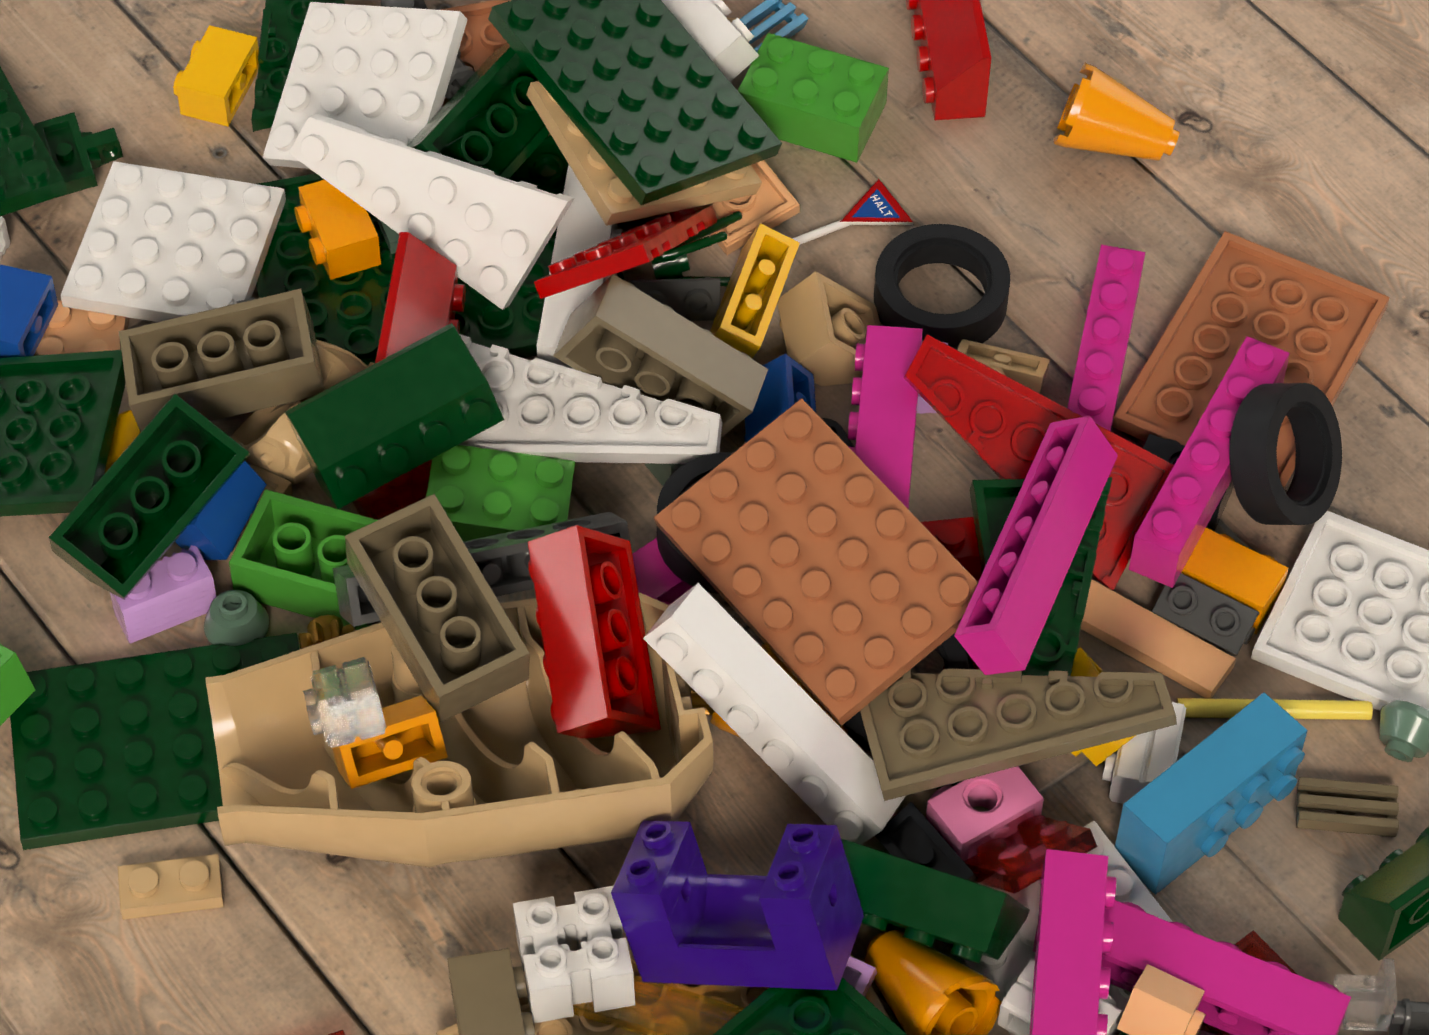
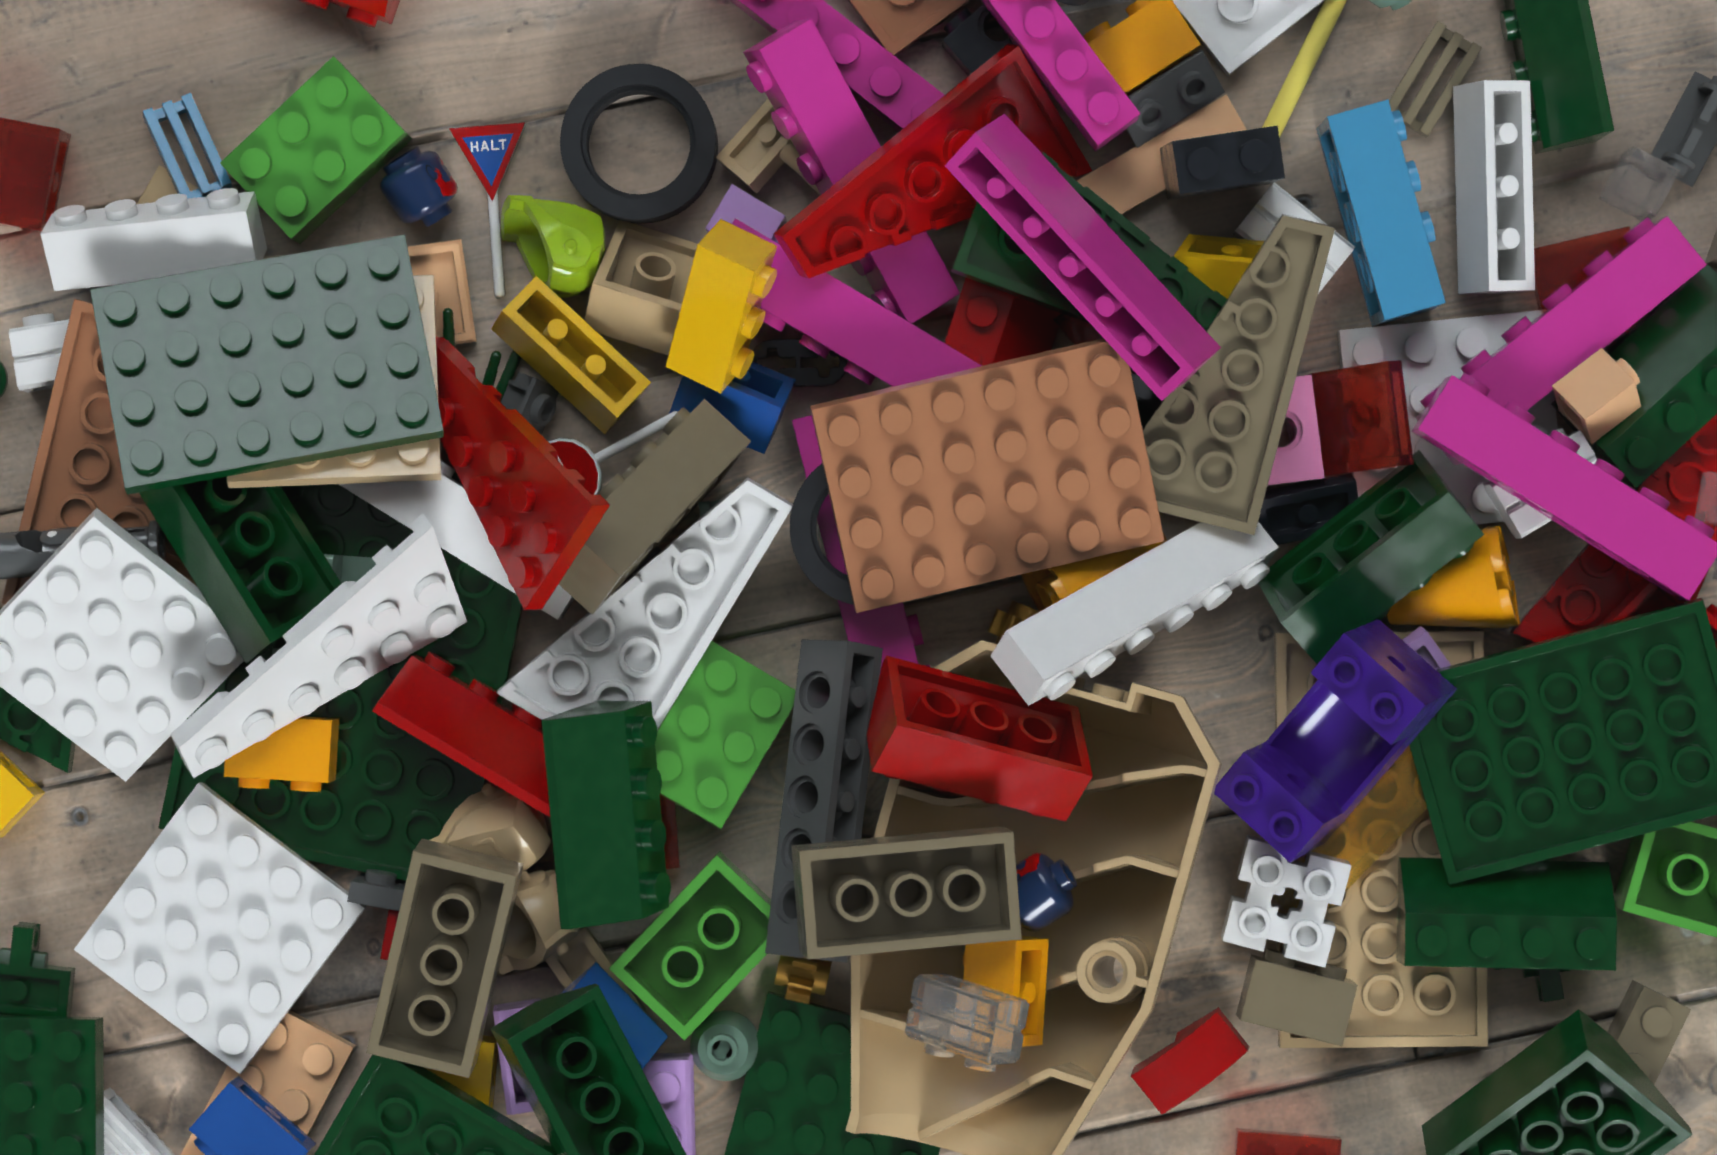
camera: 65 degrees left, 35 degrees up
(390, 968) = (1190, 1062): none -> red slope
(484, 738) = (1043, 891): none -> dark blue head
(823, 167) = (419, 187): none -> dark blue head
(837, 254) = (556, 241): none -> lime helmet
(848, 335) = (722, 306): none -> yellow brick
(1036, 360) = (833, 138): none -> dark pink brick
(1177, 637) = (1222, 162): none -> black brick
(1288, 874) = (1494, 187): none -> white brick

